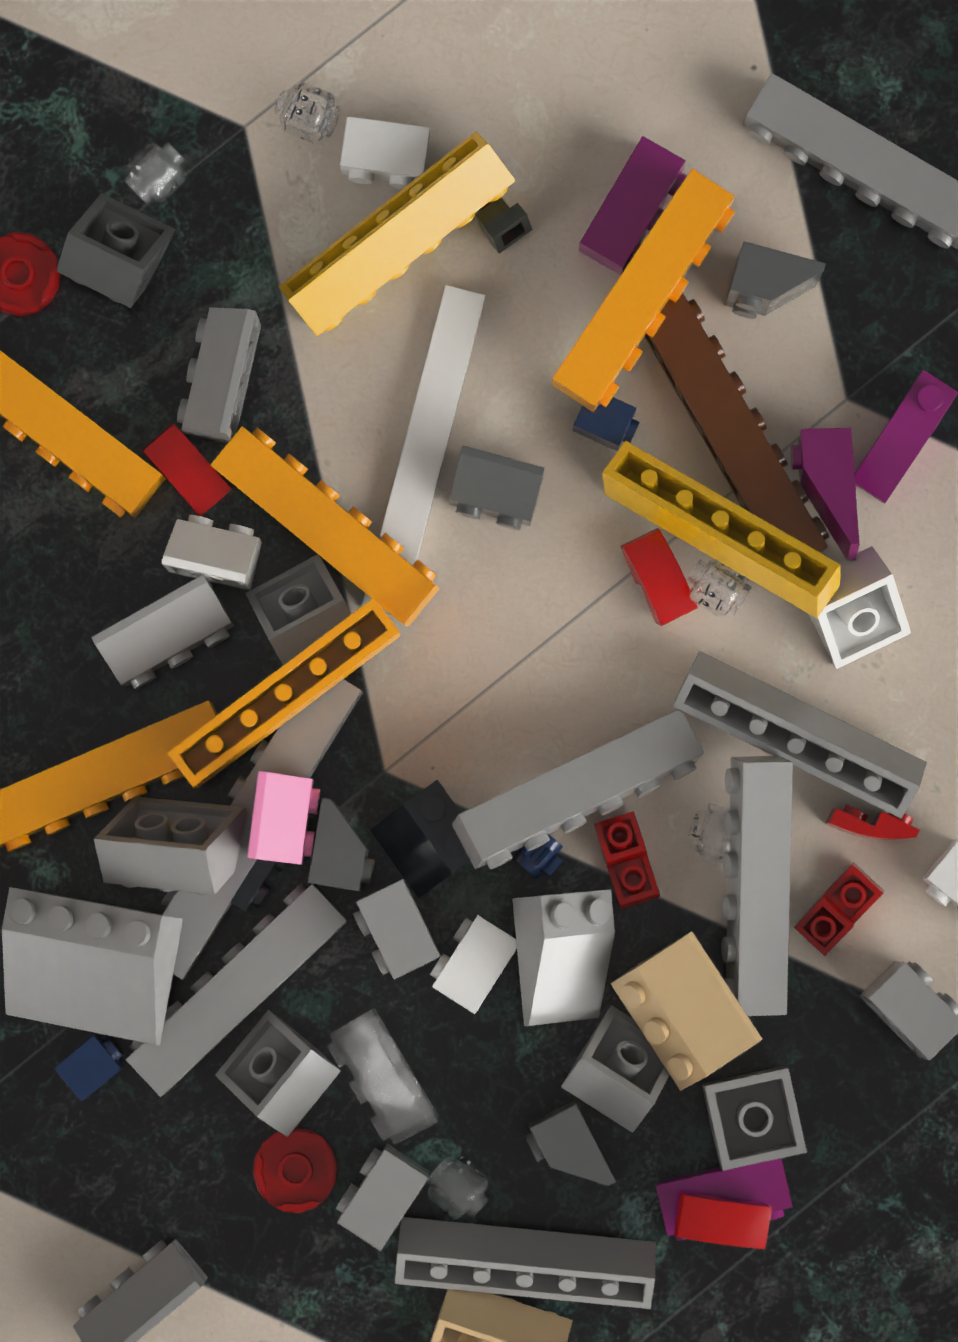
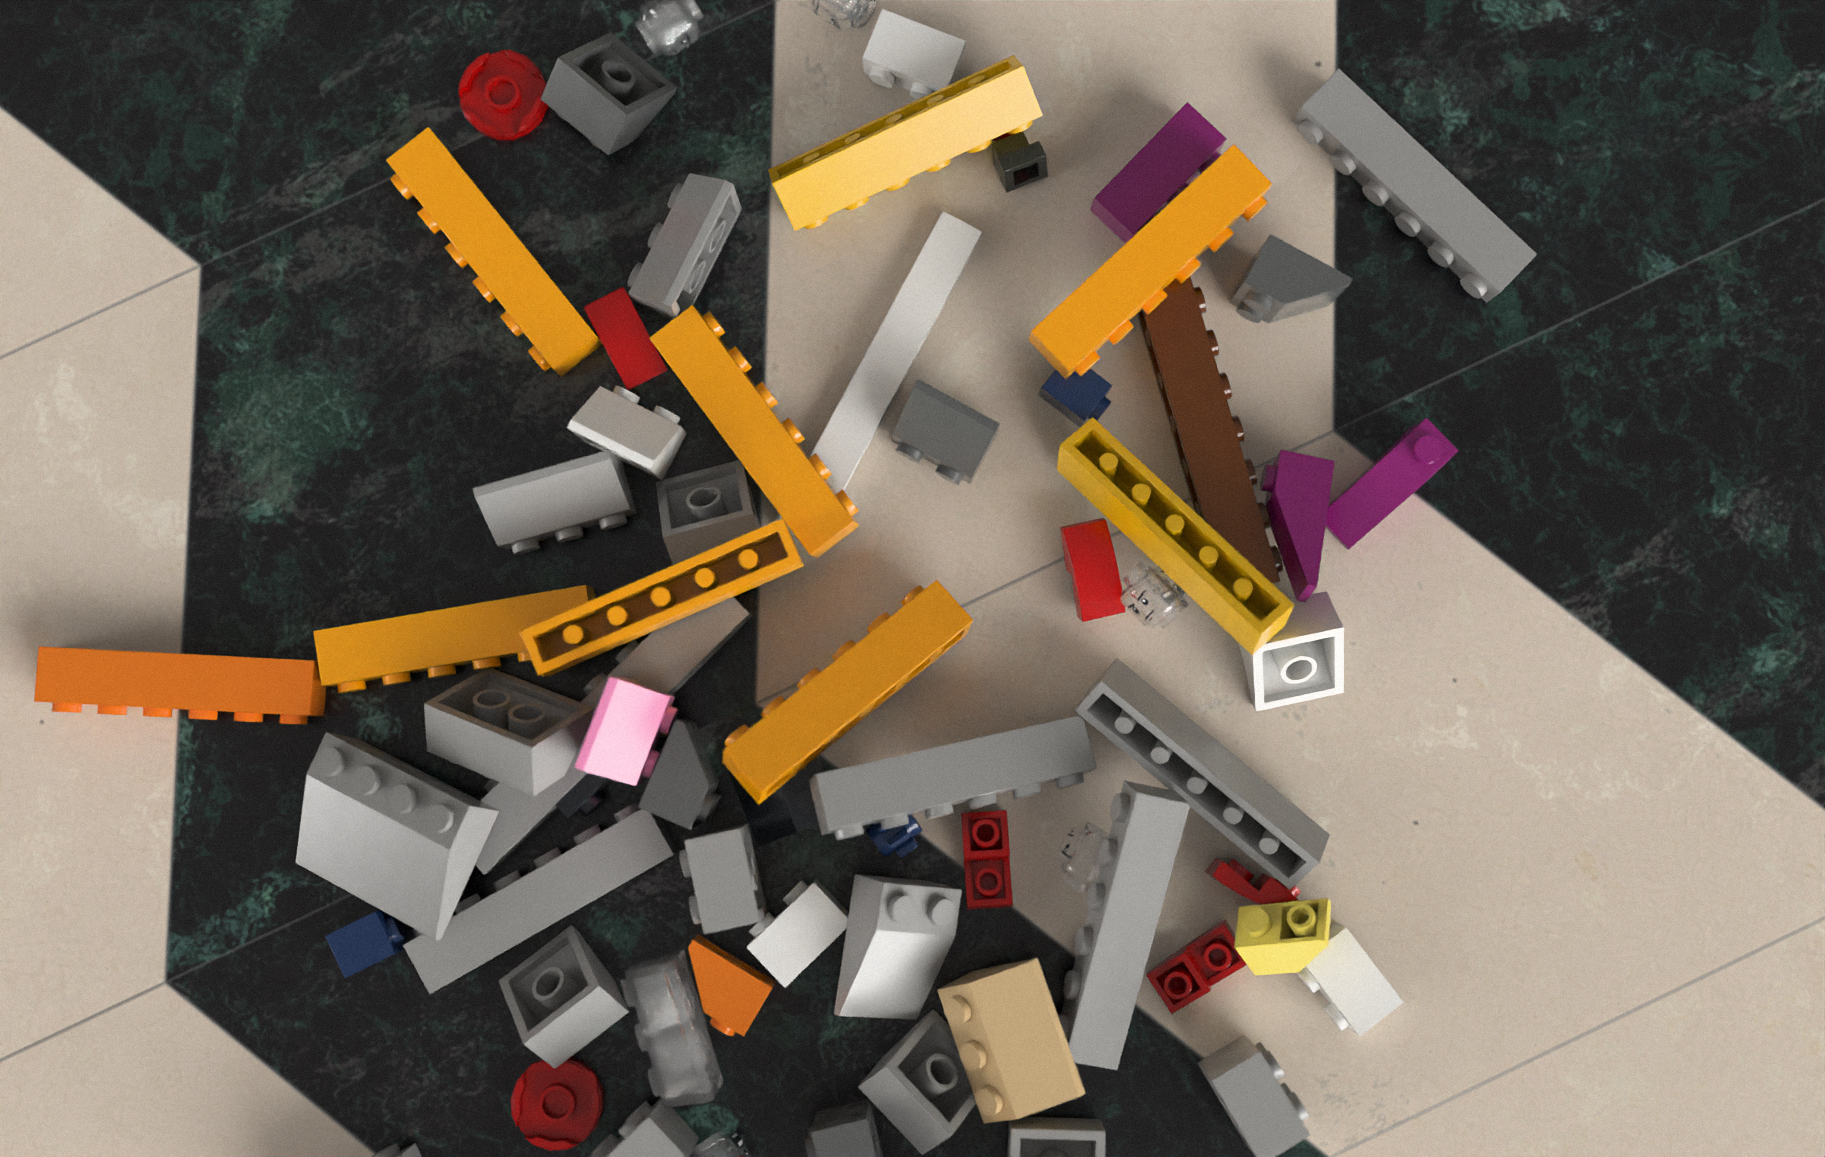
camera: 15 degrees right, 0 degrees up
(424, 1029) = (727, 987): none -> orange slope
(466, 736) = (845, 691): none -> light orange brick
(902, 860) = (1282, 935): none -> light yellow slope

